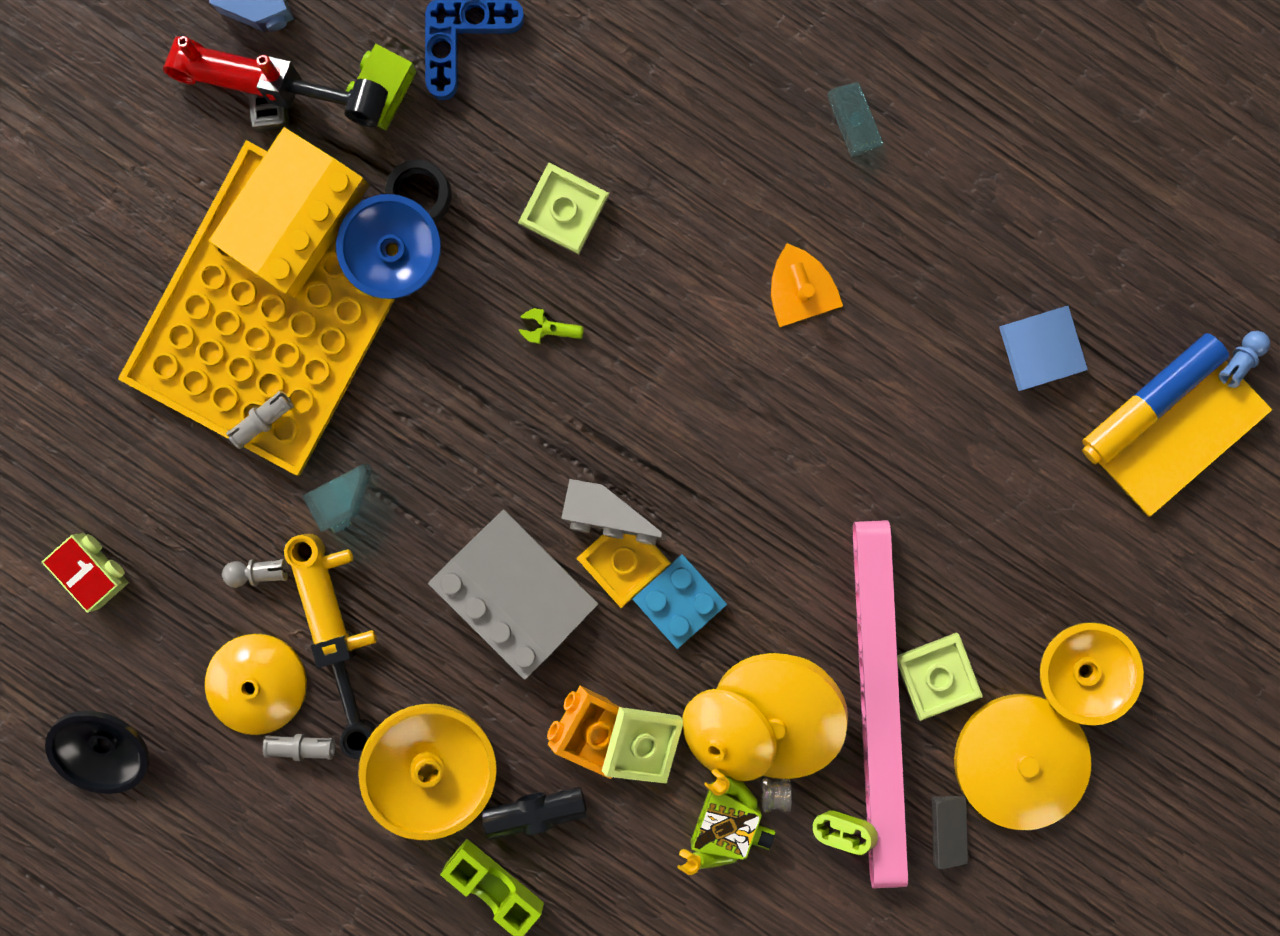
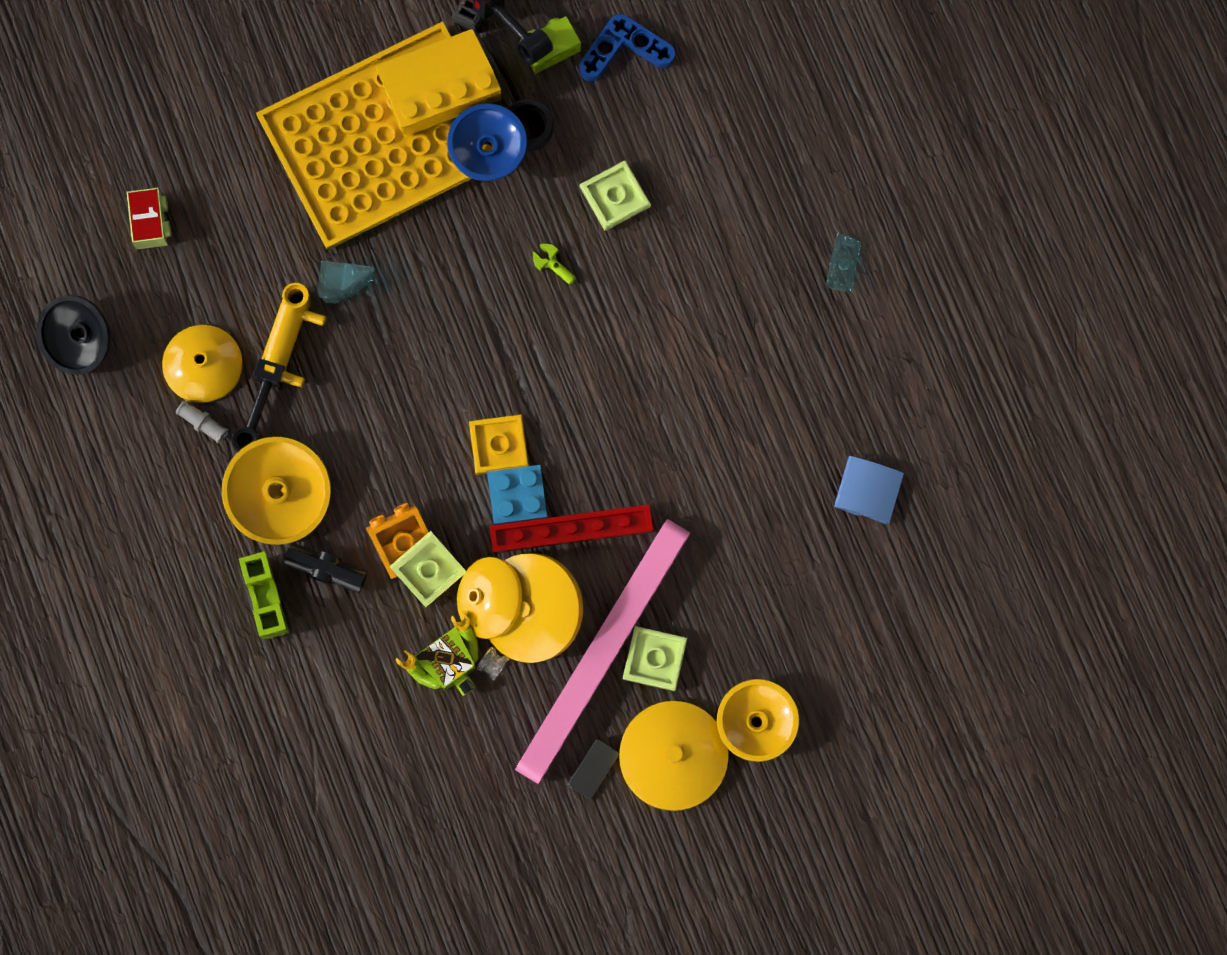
camera: 25 degrees right, 10 degrees down
(237, 574) = (242, 285): light grey pin -> none
(260, 419) = (329, 196): light grey pin -> none
(513, 594) = (412, 416): light grey slope -> none
(597, 507) = (506, 397): light grey slope -> none
(761, 600) = (571, 529): none -> red plate
(801, 287) = (736, 347): light orange shield -> none
(843, 839) = (525, 713): lime beam -> none
(1175, 426) = (924, 598): yellow door -> none
(1246, 357) = (1011, 580): medium blue pin -> none

